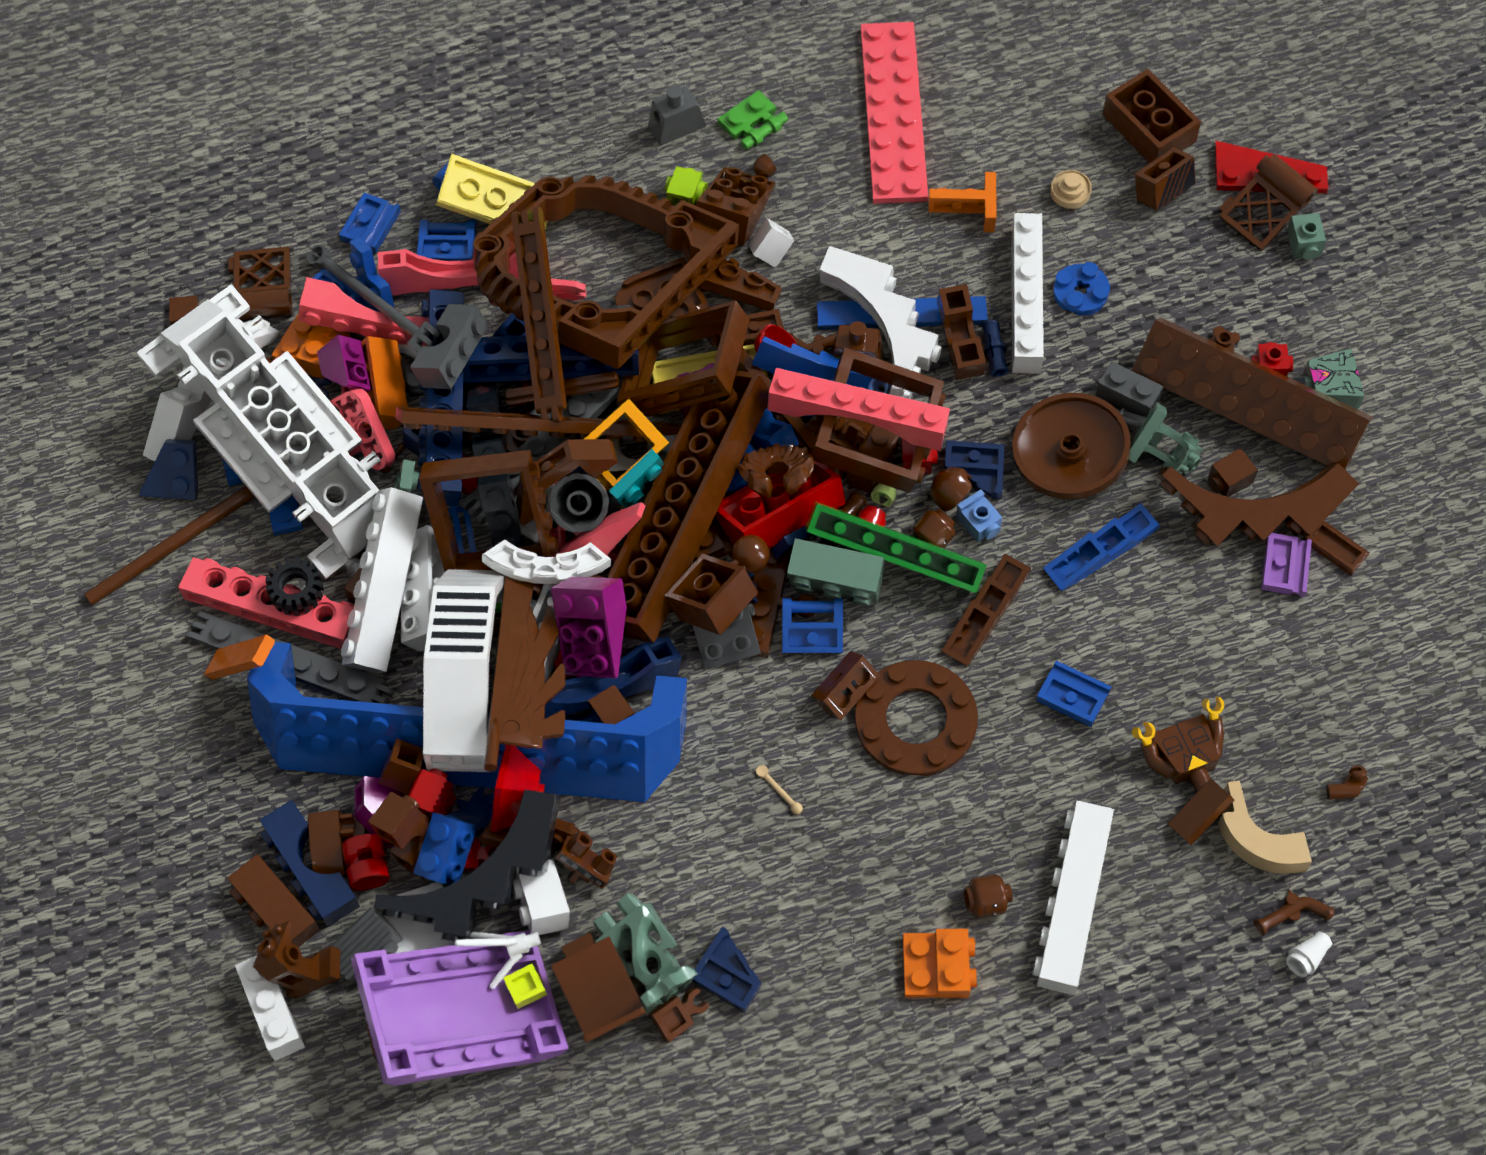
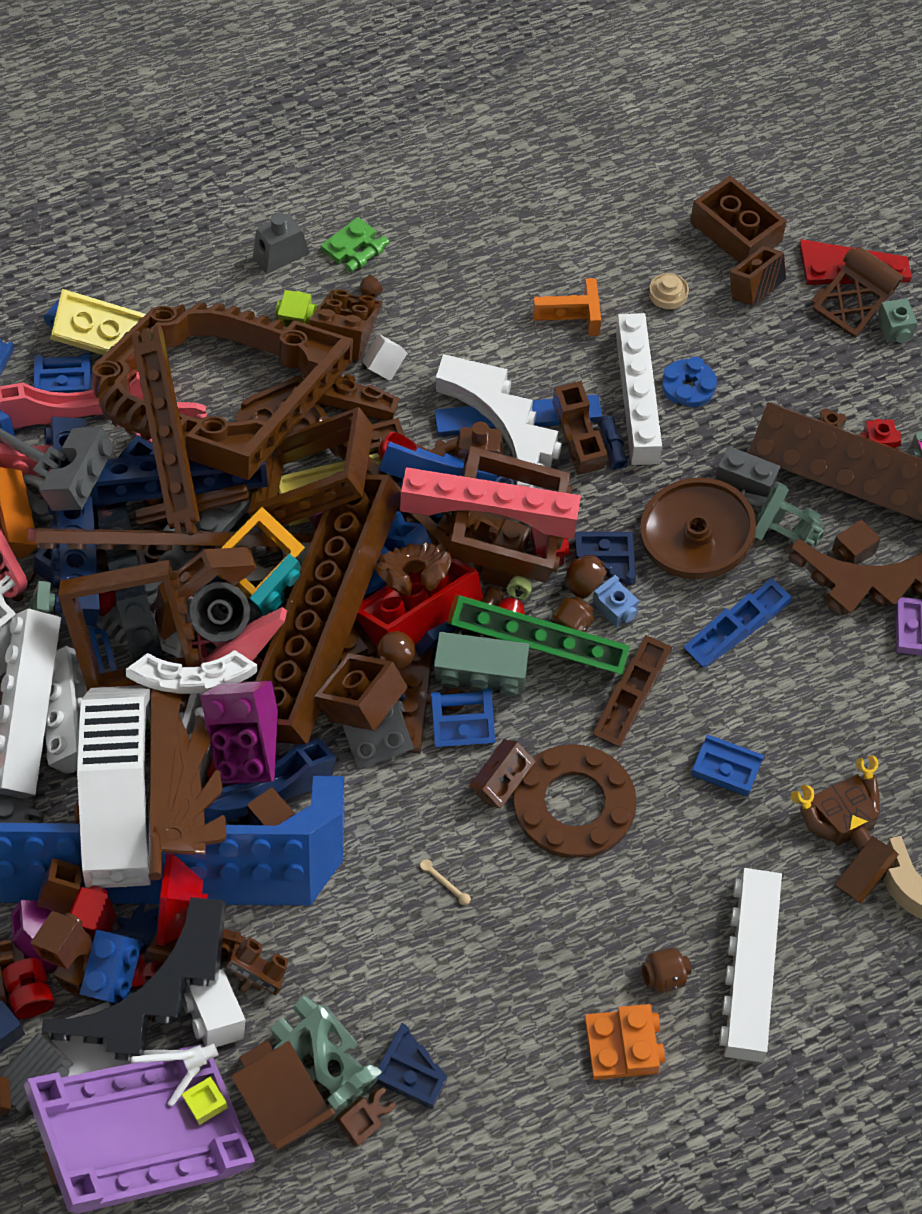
camera: 10 degrees left, 5 degrees down
(893, 113) = (490, 231): coral plate -> none

